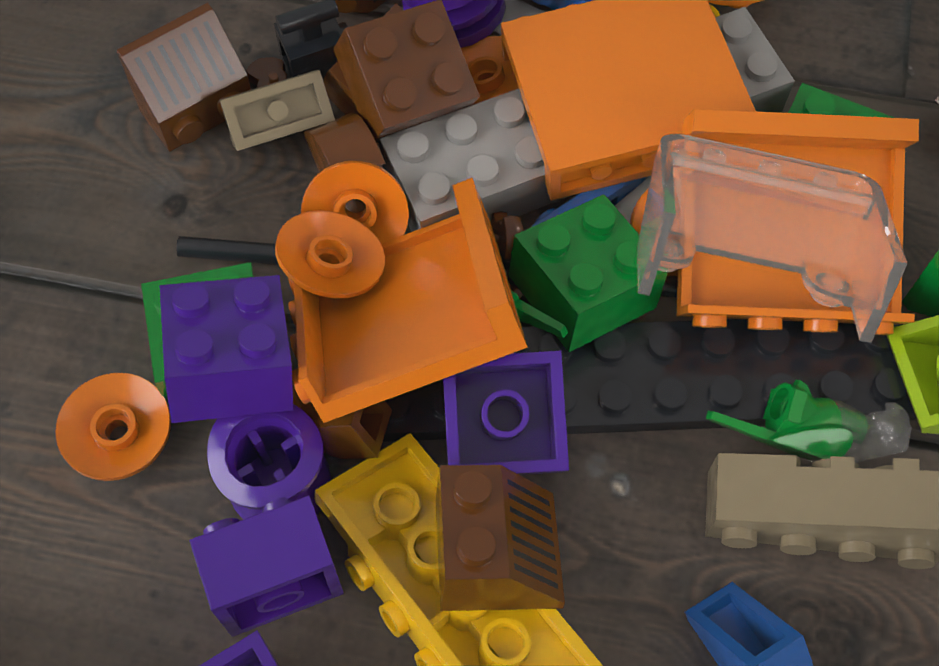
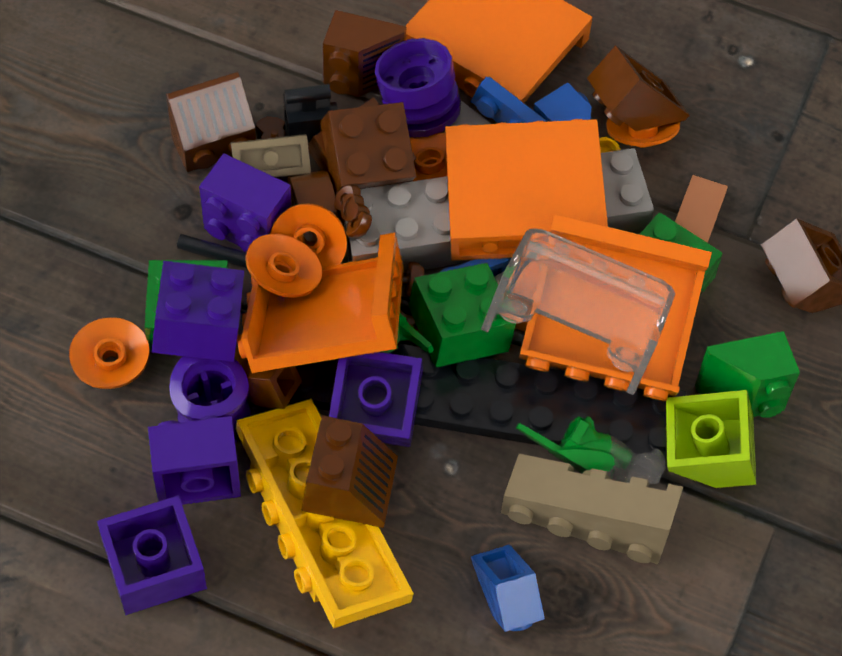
camera: 10 degrees right, 5 degrees down
(252, 176) = (241, 201): none -> dark purple brick
(408, 159) = (353, 210): none -> reddish brown piece
(838, 64) = (701, 206): none -> nougat tile

